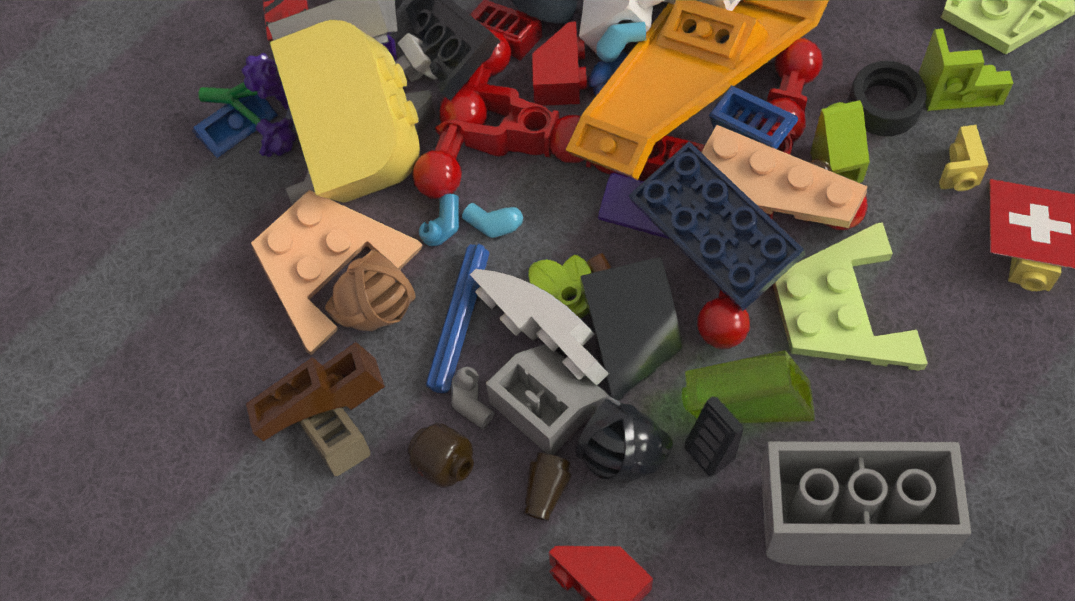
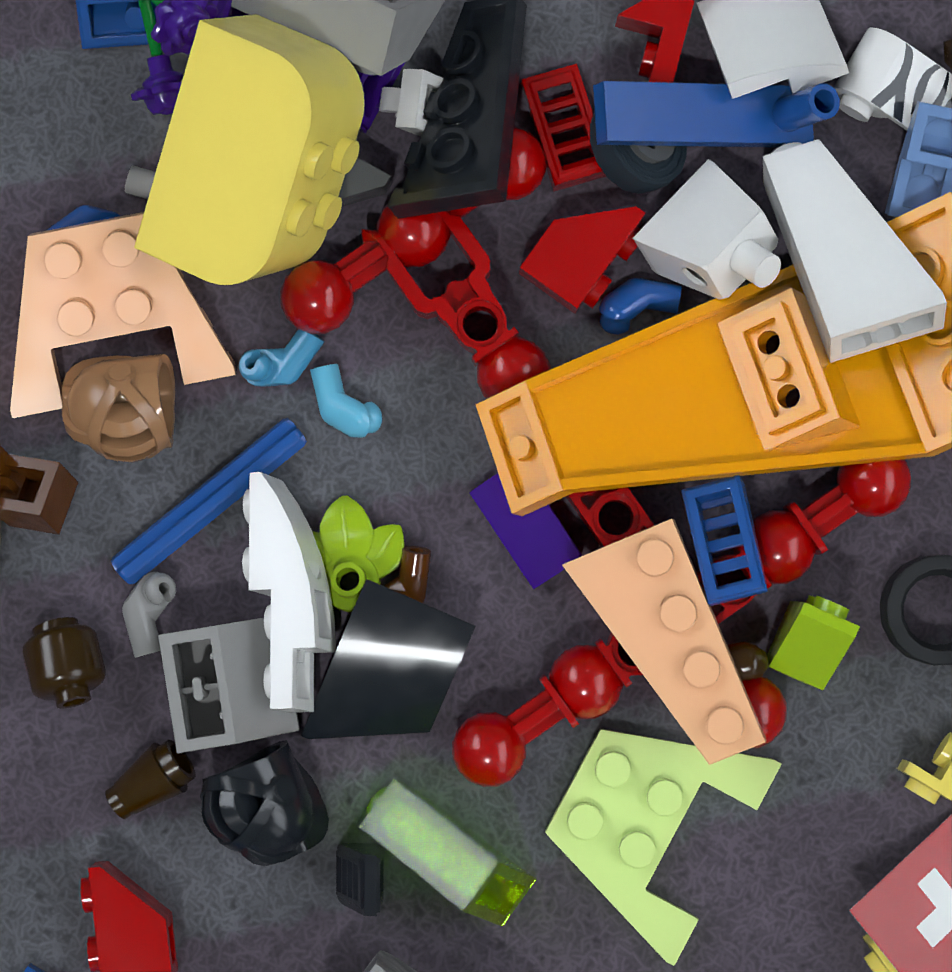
camera: 30 degrees right, 25 degrees up
(617, 37) = (672, 283): medium azure arm -> none
(716, 226) = (561, 645): dark blue tile -> none

